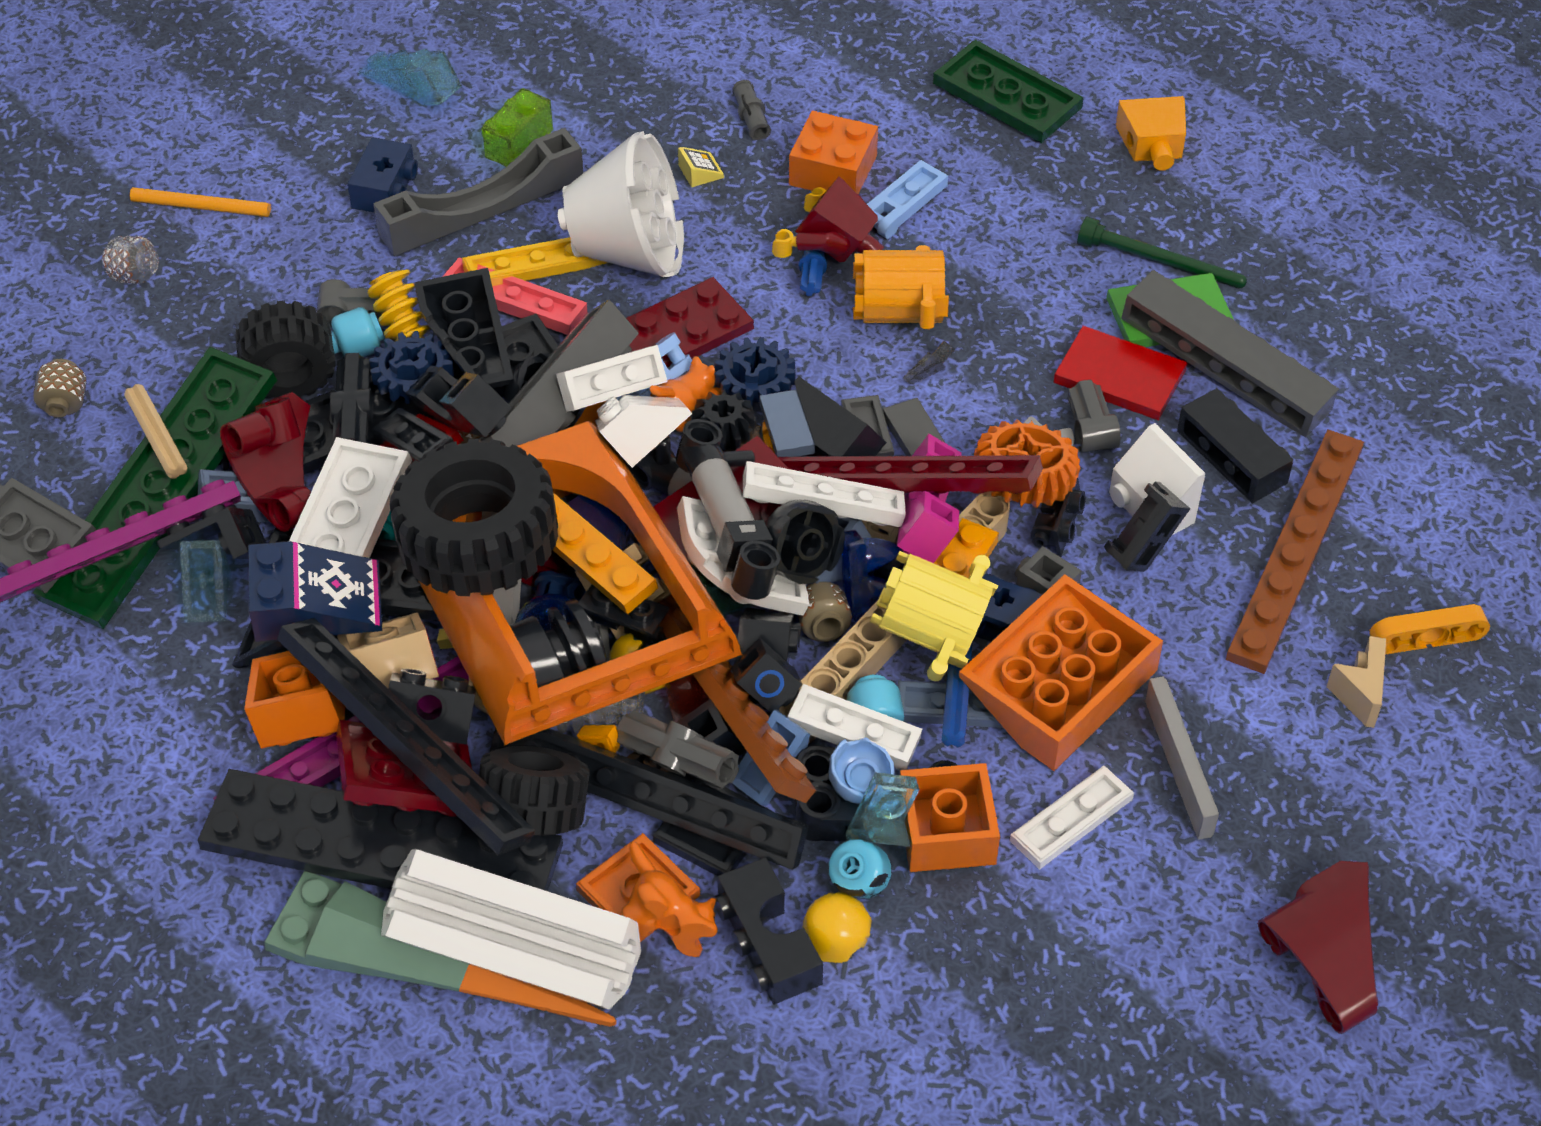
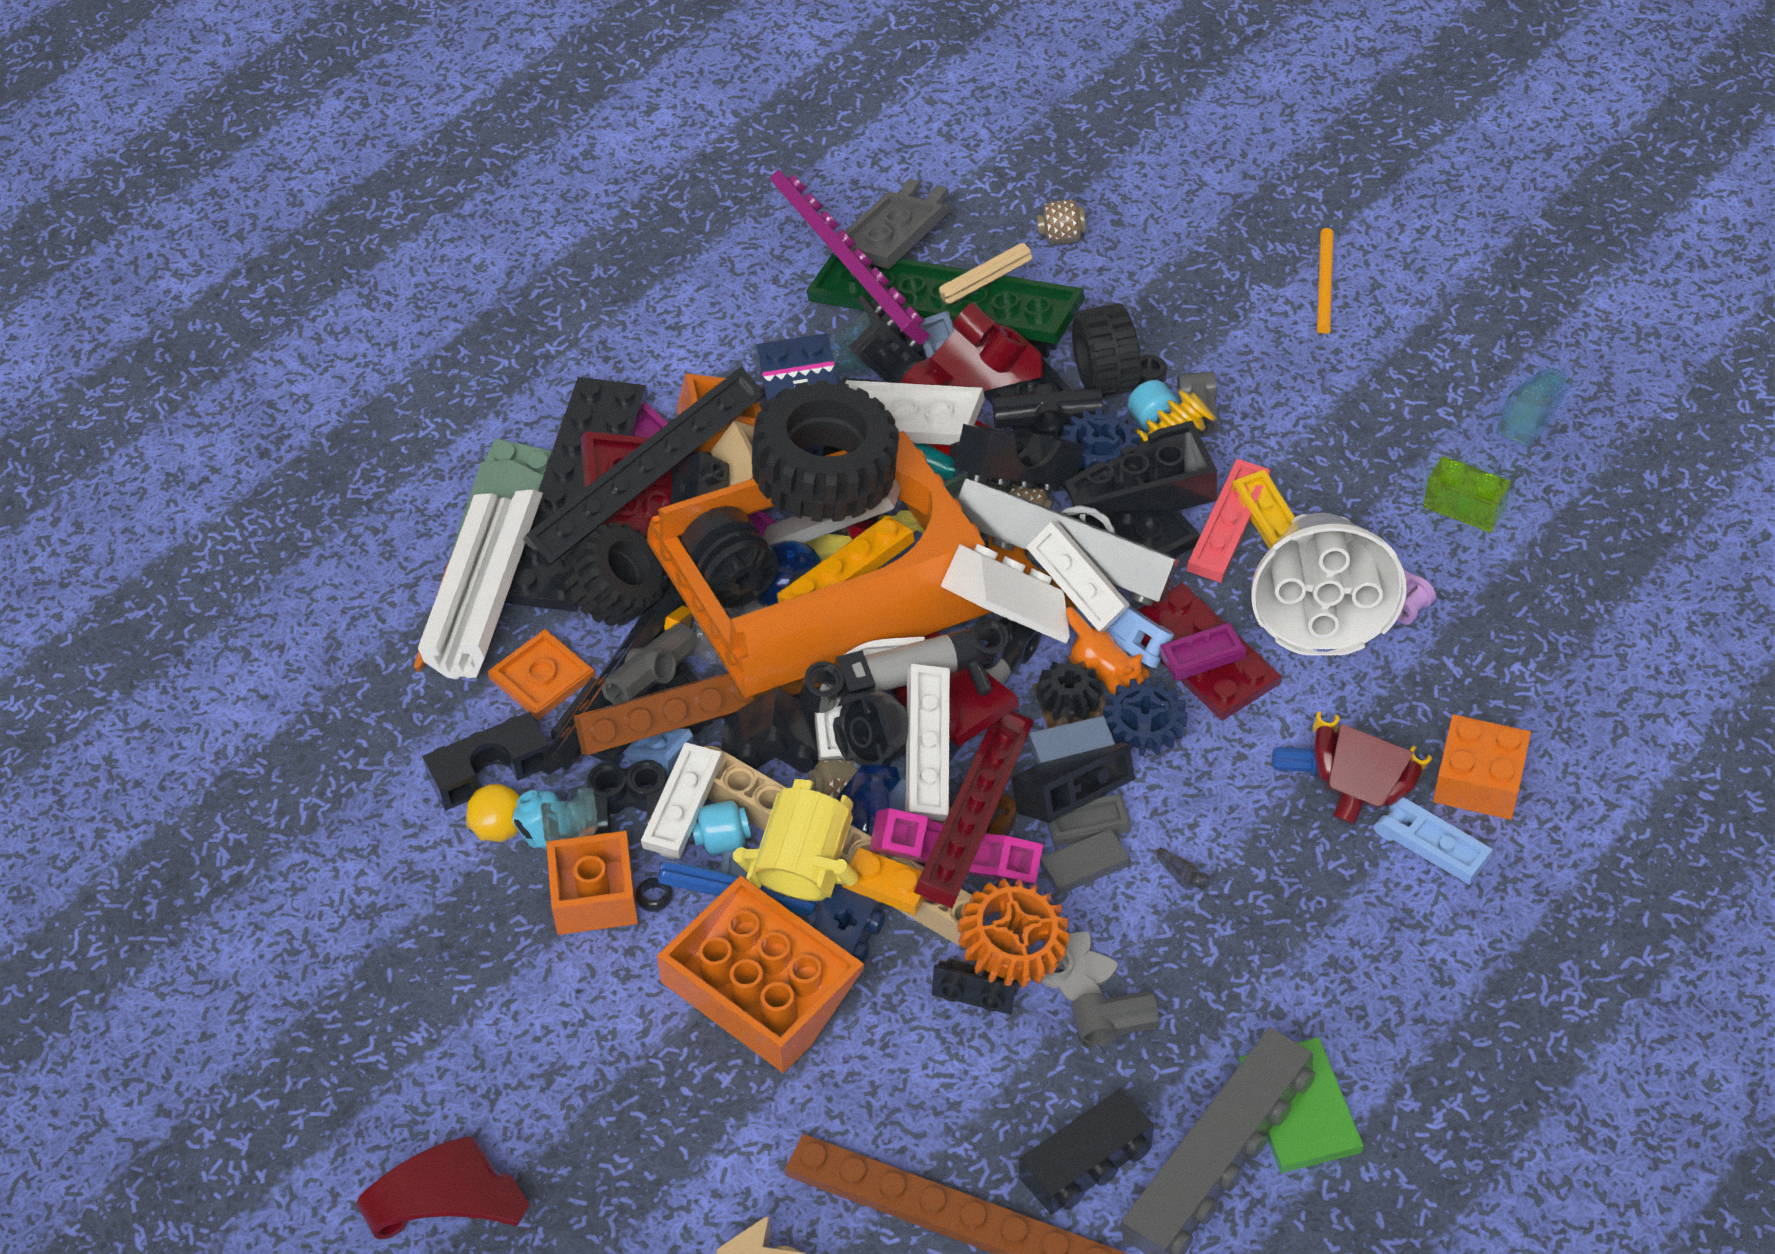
camera: 90 degrees right, 0 degrees up
(130, 259) = (1229, 240): clear head -> none
(381, 173) = (1376, 399): dark blue brick -> none
(417, 219) = (1403, 516): dark grey arch -> none
(663, 905) = (507, 674): orange animal -> none
(694, 315) = (1202, 651): none -> magenta plate
(698, 166) = (1452, 654): light yellow slope -> none
(751, 110) = (1553, 695): dark grey pin -> none
(767, 676) = (722, 720): black brick -> none
(854, 766) = (625, 799): light blue hair -> none
(900, 286) = (1272, 830): light orange container -> none
(1008, 90) = (1643, 940): dark green plate -> none
(1044, 570) = (879, 958): dark grey brick -> none
(1071, 817) = (609, 996): white tile -> none
(1096, 234) = (1410, 1024): dark green piece -> none
(1125, 371) = (1194, 1050): red tile -> none
(1148, 529) = (940, 1052): black hinge -> none
(1153, 129) = (1600, 1091): light orange torso -> none
(1159, 460) = (1007, 1067): white slope -> none
(1181, 758) = (667, 1082): light grey tile -> none

